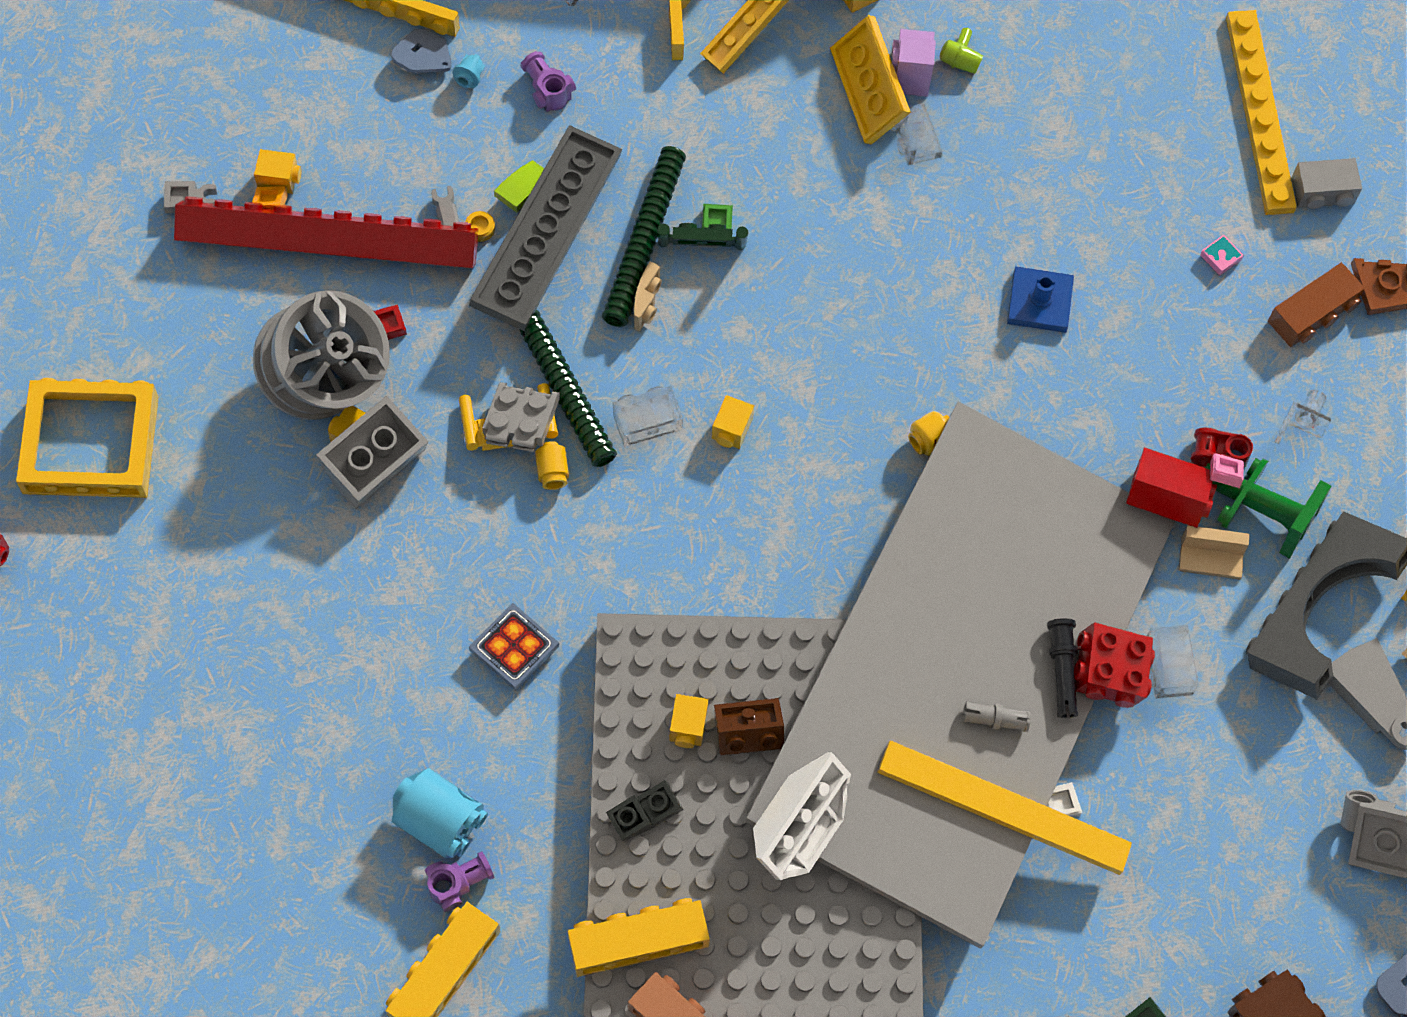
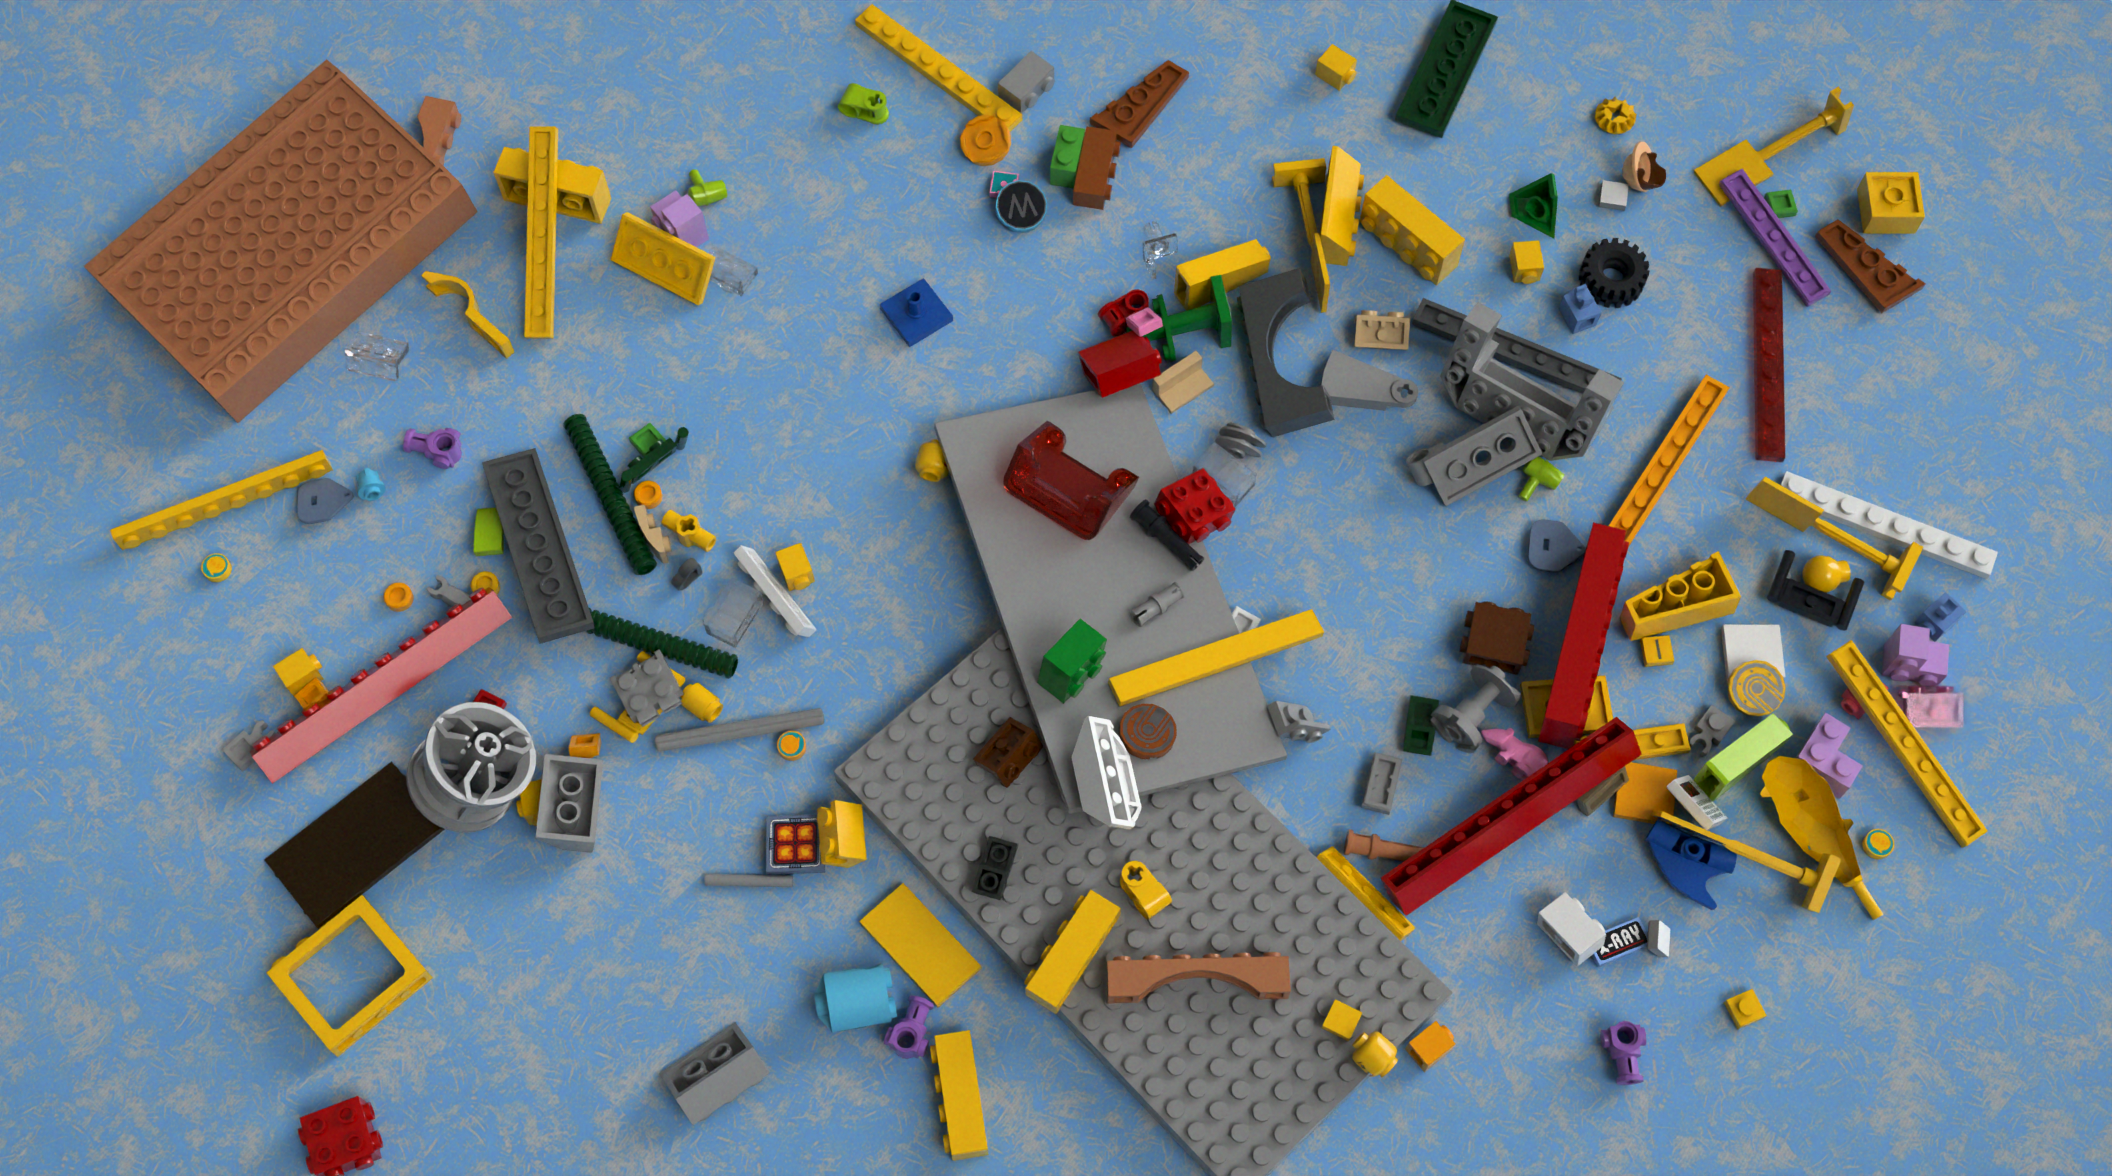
camera: 40 degrees left, 0 degrees up
(183, 341) = (352, 846): none -> dark brown piece
(273, 769) = (714, 1073): none -> light grey slope
(297, 39) = (216, 567): none -> yellow tile
(407, 178) = (398, 597): none -> light orange tile
(430, 419) = (585, 745): none -> light orange plate
(451, 642) = (748, 880): none -> light grey bar
(532, 820) = (920, 945): none -> yellow tile
(555, 671) = (841, 834): none -> yellow brick
(562, 515) = (739, 729): none -> light grey axle
(589, 564) = (791, 745): none -> light orange tile
(641, 352) = (687, 573): none -> dark grey tile
(675, 263) = (648, 494): none -> light orange tile
(677, 328) = (688, 530): none -> yellow axle
(688, 721) = (967, 784): yellow brick -> none
(697, 426) = (768, 584): none -> white plate
(747, 947) = (1146, 893): none -> yellow piece
(868, 697) = (1072, 661): none -> green brick
(879, 814) = (1147, 731): none -> tile
(1015, 546) = (1063, 486): none -> clear red windscreen
(1022, 925) = (1296, 722): none -> light grey bracket
(1165, 89) = (862, 102): none -> lime piece
(1211, 643) = (1237, 440): none -> light grey piece
(1218, 284) = (1021, 206): none -> black tile
(1242, 203) = (985, 140): none -> light orange tile
(1299, 272) = (1066, 156): none -> bright green brick
(1352, 487) = (1234, 264): none -> yellow slope

